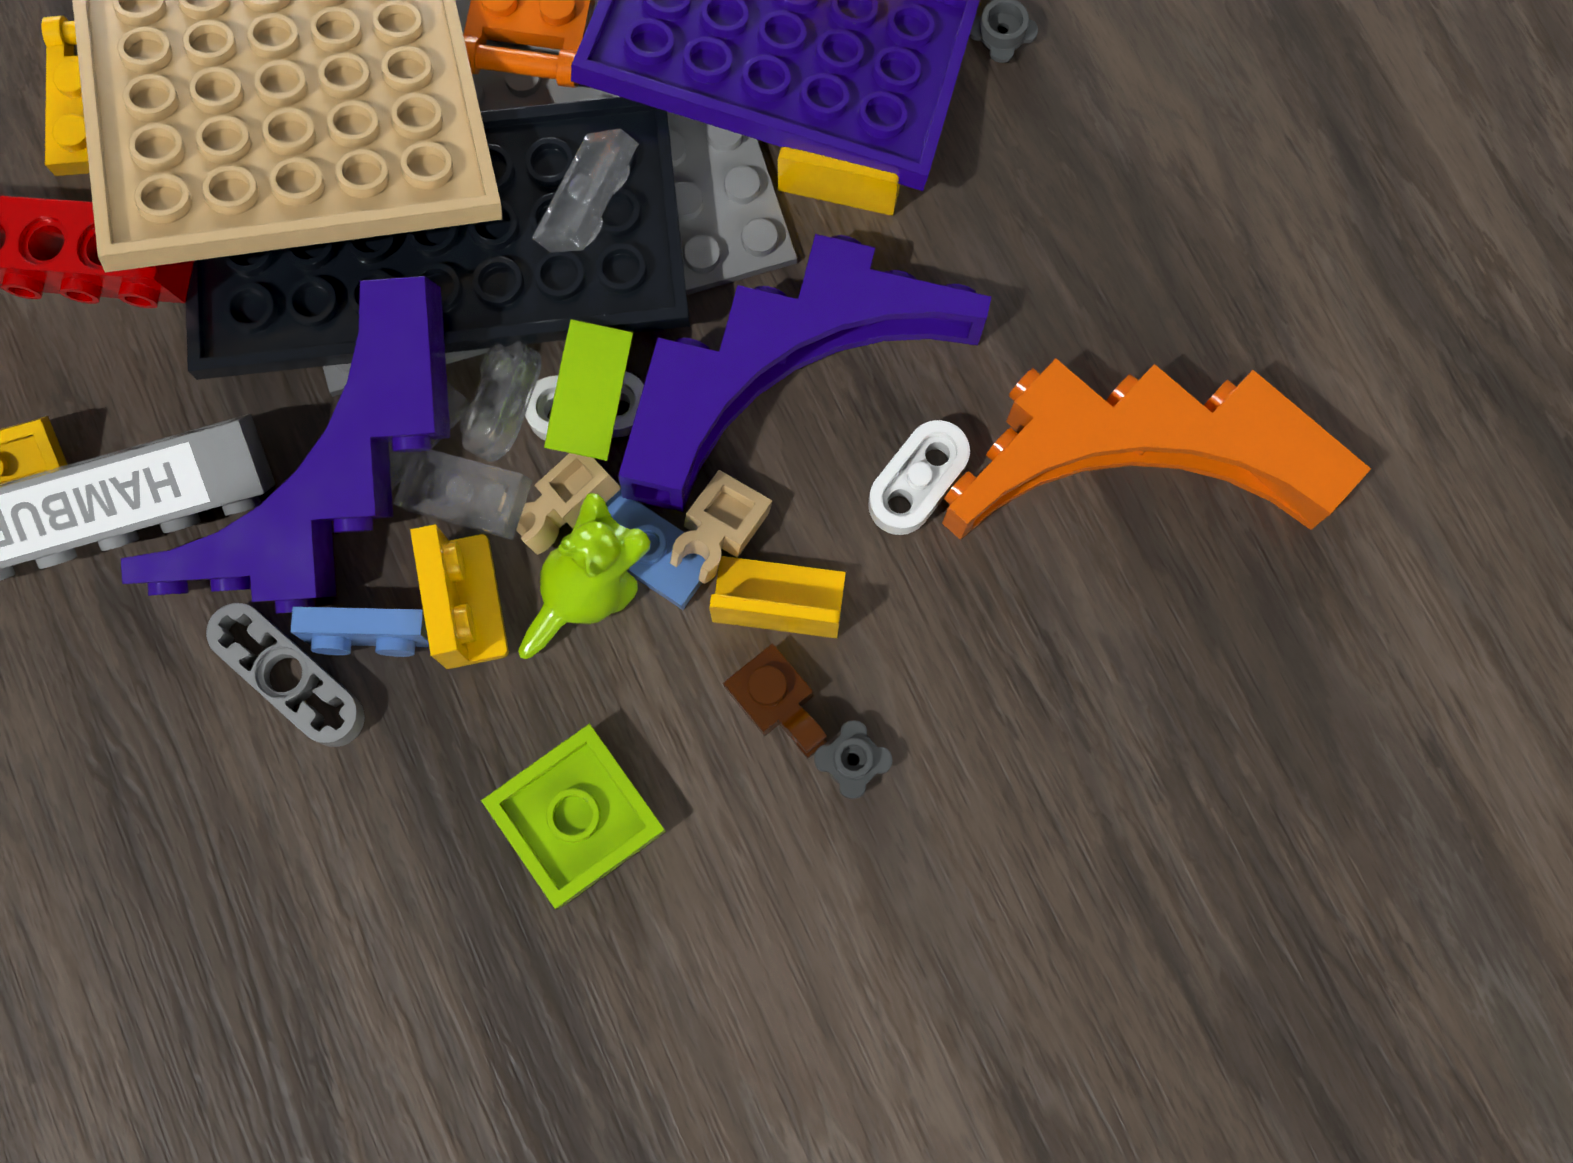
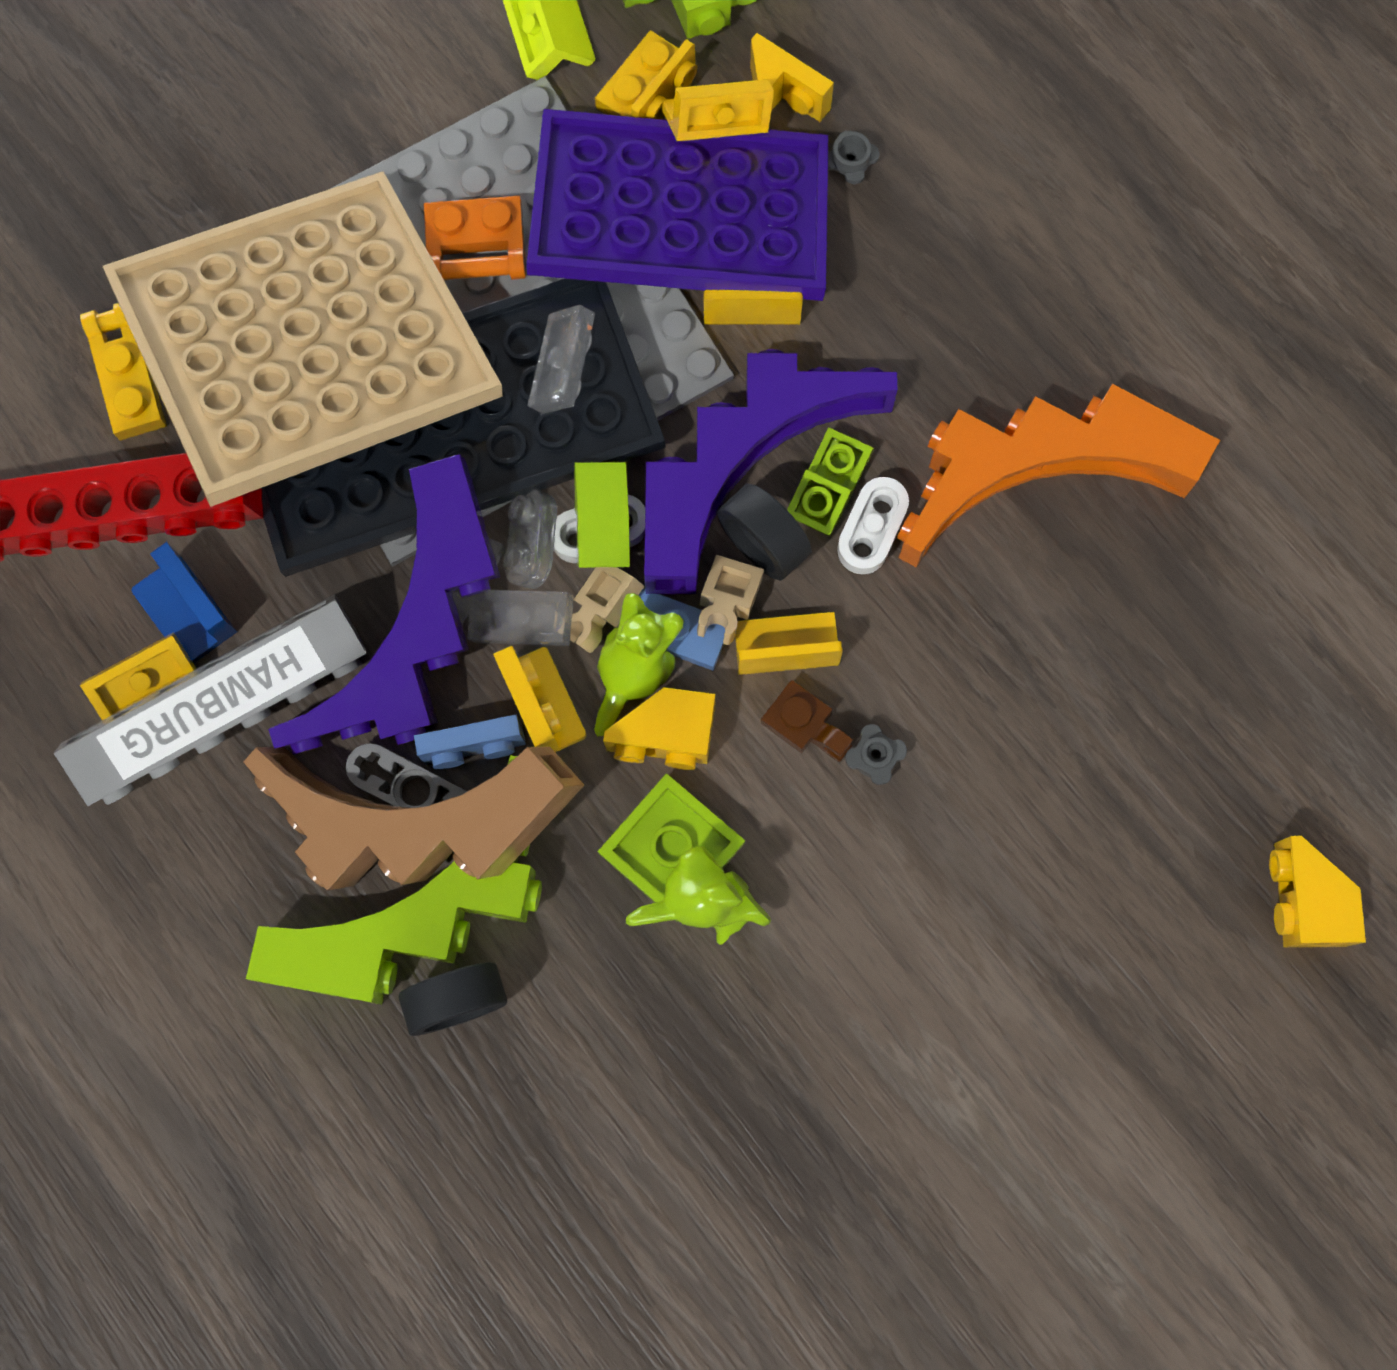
camera: 10 degrees left, 0 degrees up
(72, 385) = (182, 605): none -> blue panel
(159, 862) = (357, 956): none -> lime arch
(192, 710) = (481, 827): none -> medium nougat arch
(253, 942) = (452, 998): none -> black tyre
(590, 891) = (703, 897): none -> lime animal
(606, 665) = (665, 726): none -> yellow slope
(782, 455) = (764, 531): none -> black tyre
(879, 412) = (829, 481): none -> lime slope
(1357, 1071) = (1315, 898): none -> yellow slope

